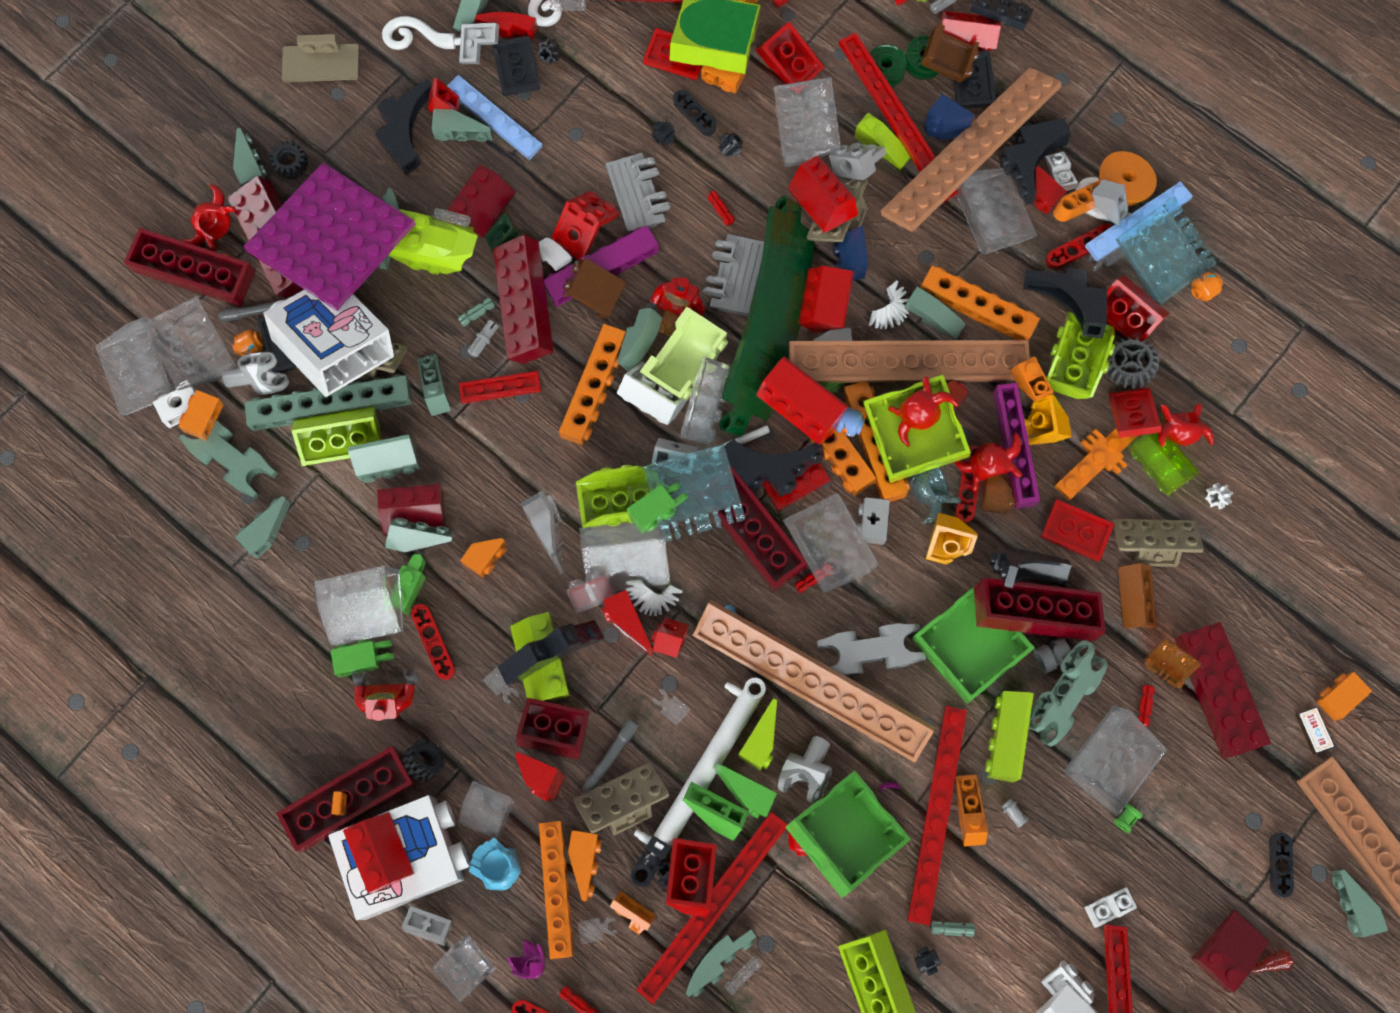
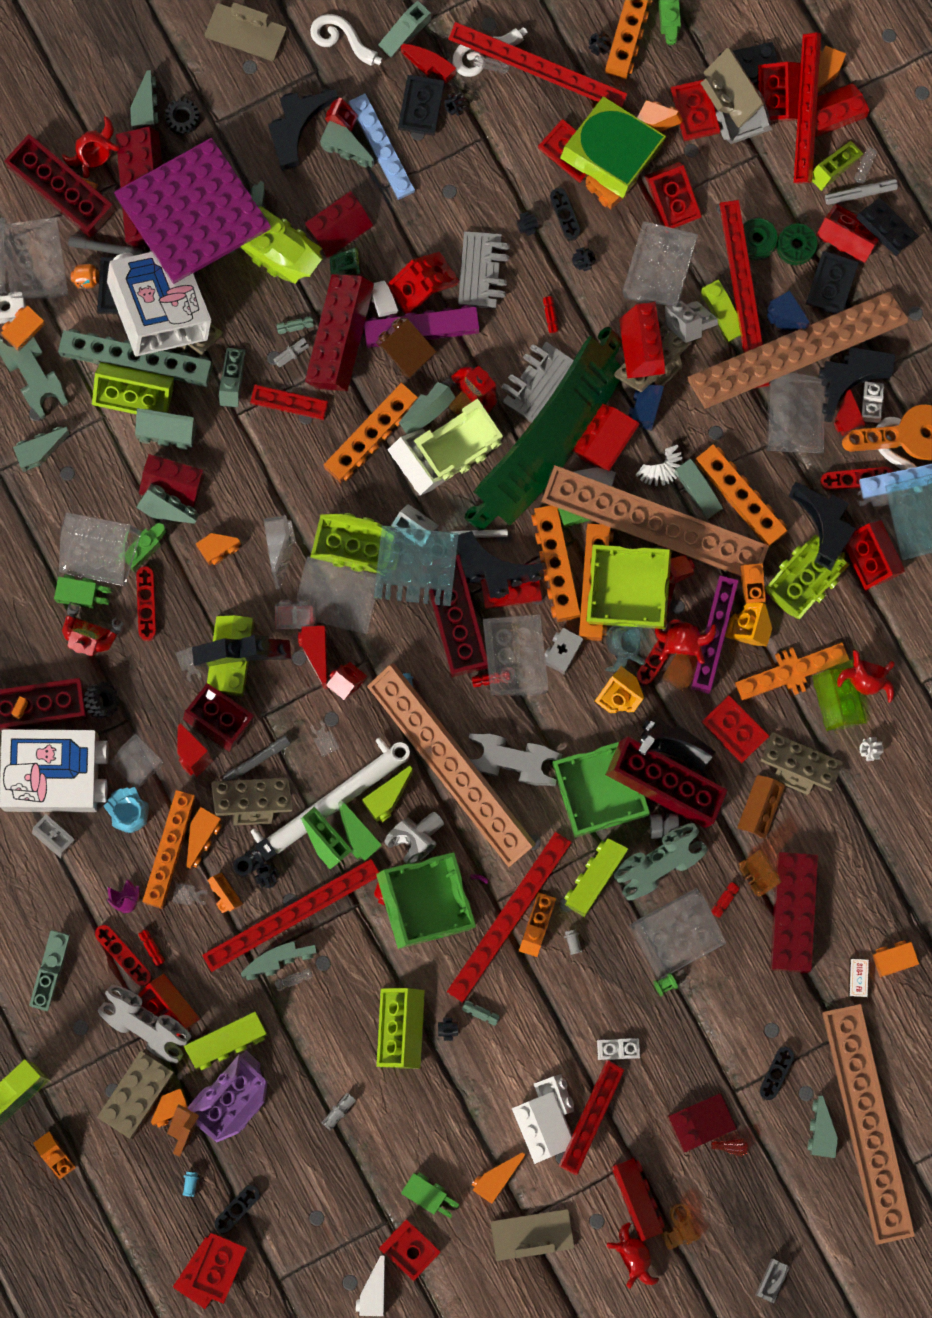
camera: 20 degrees right, 5 degrees up
(256, 373) = (81, 306): light grey connector -> none
(378, 852) = (38, 759): red slope -> none
(451, 217) = (306, 232): clear axle -> none
(463, 968) = (69, 881): clear slope -> none
(473, 37) = (391, 64): light grey plate -> none
(651, 600) = (345, 642): white hair -> none
(655, 507) = (376, 566): bright green hinge -> none
(691, 877) = (282, 882): red slope -> none
(705, 402) = (458, 490): clear slope -> none
(802, 400) = (541, 522): red slope -> none
(850, 423) = (576, 556): medium blue head -> none
(920, 410) = (637, 572): red piece -> none
(949, 55) = (816, 253): reddish brown panel -> none
(1111, 200) = (894, 450): light grey slope -> none
(1131, 369) = (864, 596): dark grey gear -> none
(1134, 412) = (829, 647): red plate -> none

